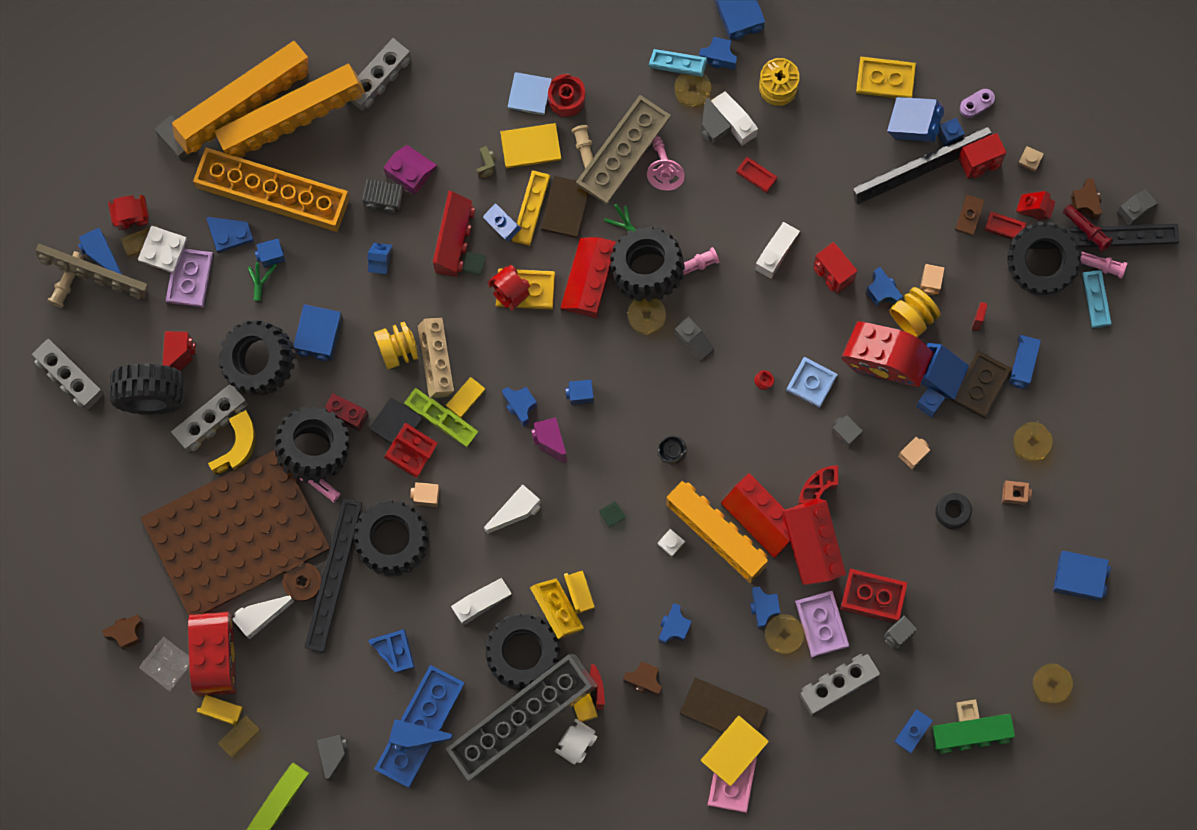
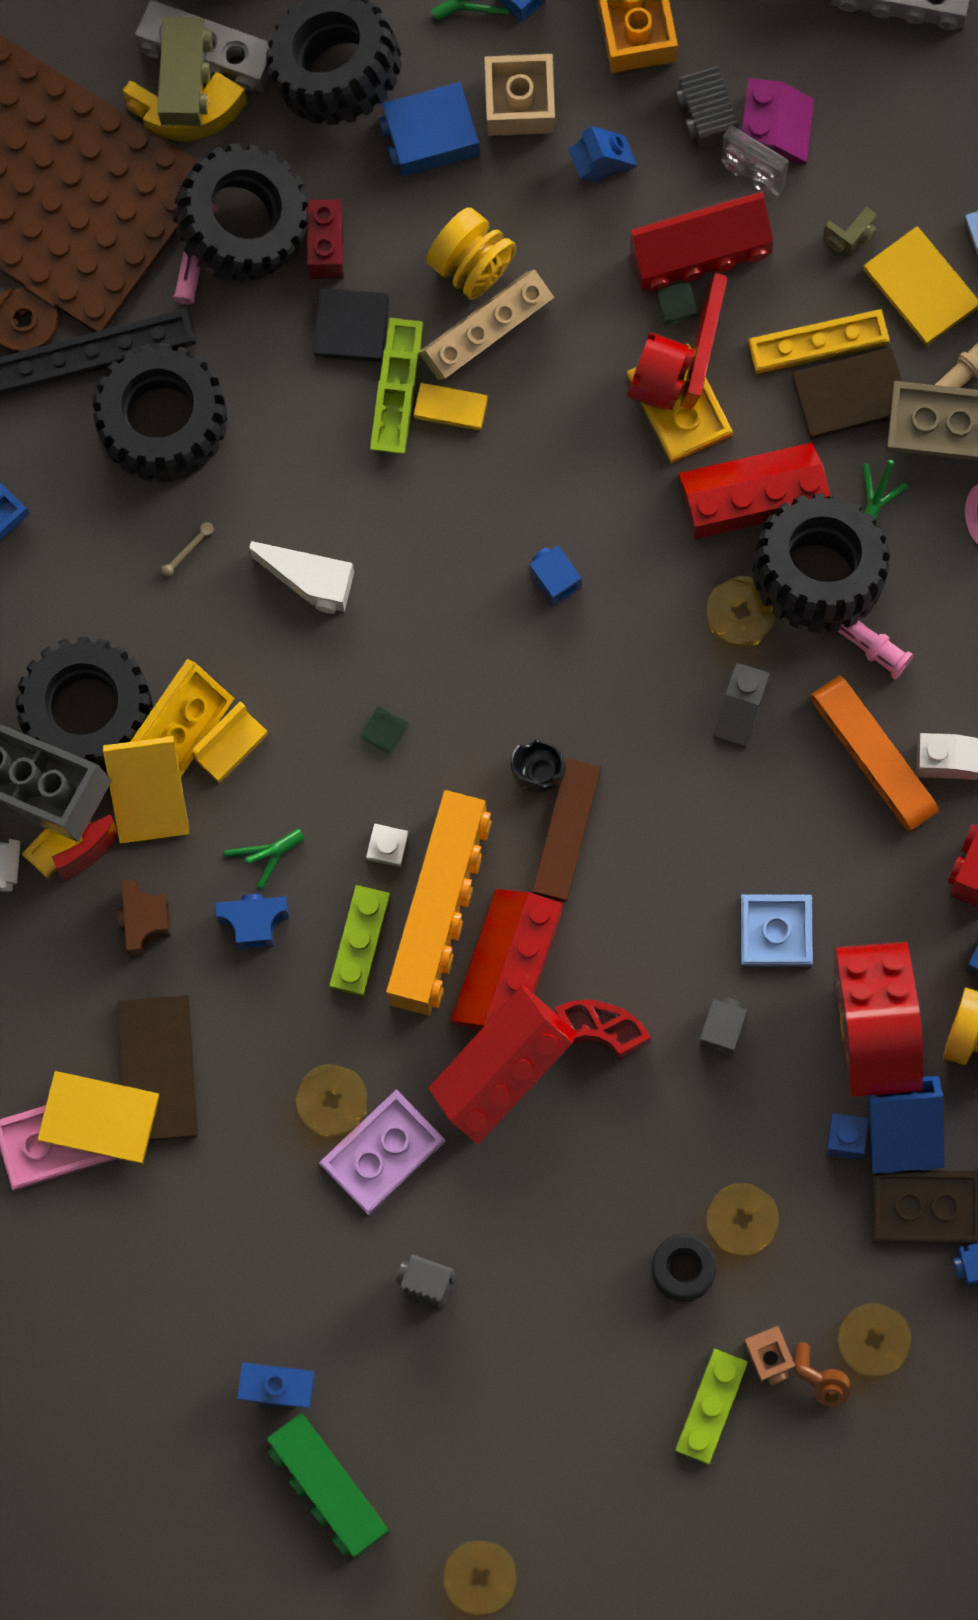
camera: 65 degrees right, 0 degrees up
(222, 433) = (184, 71): none -> olive brick
(326, 279) = (520, 94): none -> tan brick
(410, 450) = (318, 368): red slope -> none
(425, 494) = (259, 428): light nougat brick -> none
(426, 187) = (754, 160): none -> clear plate
(461, 547) = (206, 530): none -> dark tan hinge
(480, 601) = (133, 601): white slope -> none
(500, 257) = (703, 341): none -> red tile
(502, 222) = (763, 307): brick -> none
(519, 403) = (484, 493): blue brick -> none
(549, 439) = (451, 565): magenta slope -> none
(584, 641) = (146, 789): none -> yellow tile
(644, 599) = (260, 852): none -> green plant
(710, 454) = (566, 830): none -> reddish brown tile
(711, 580) = (360, 940): none -> lime plate
(751, 291) = (874, 753): none -> orange beam
(764, 380) = (736, 851): red tile -> none
(764, 606) = (358, 1043): blue brick -> none
(815, 703) = (243, 1206): light grey brick -> none
(873, 596) = (468, 1208): red brick -> none
(914, 452) = (748, 1154): light nougat brick -> none
(953, 466) = (731, 1237): none -> clear yellow plate
(967, 710) = (360, 1460): tan plate -> none
(1025, 533) = (711, 1406): none -> lime plate
(1044, 473) = (830, 1385): none -> dark orange plate
(1081, 576) = (688, 1535): blue brick -> none

